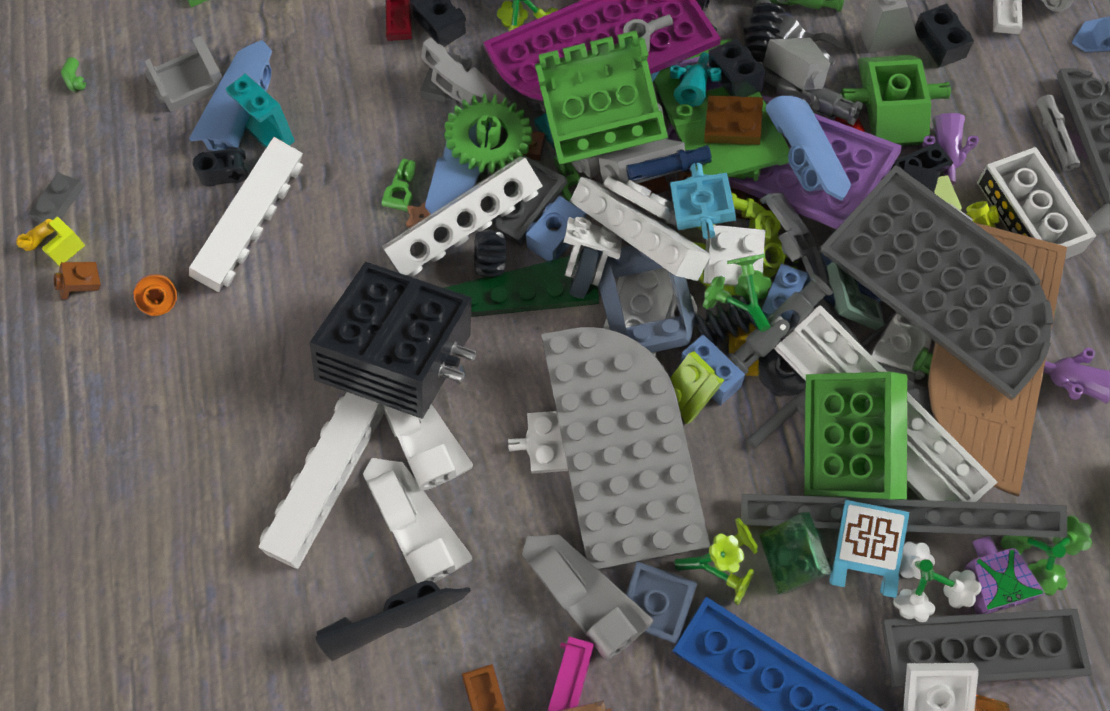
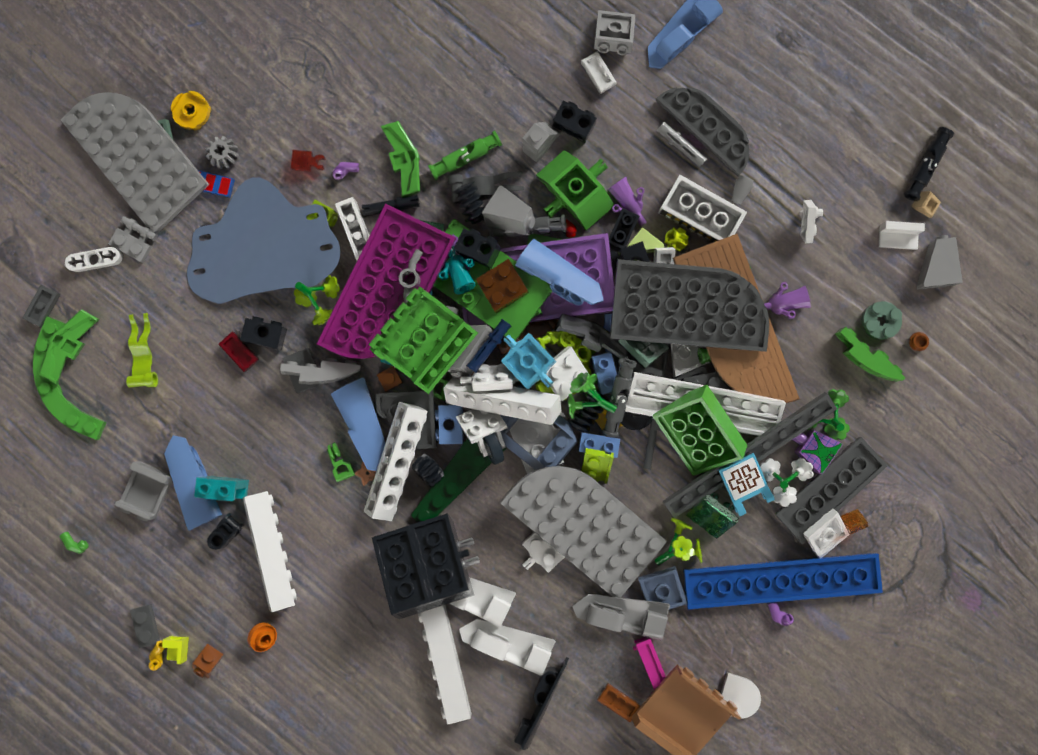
camera: 35 degrees left, 20 degrees up
(483, 113) = (355, 381): bright green gear -> none

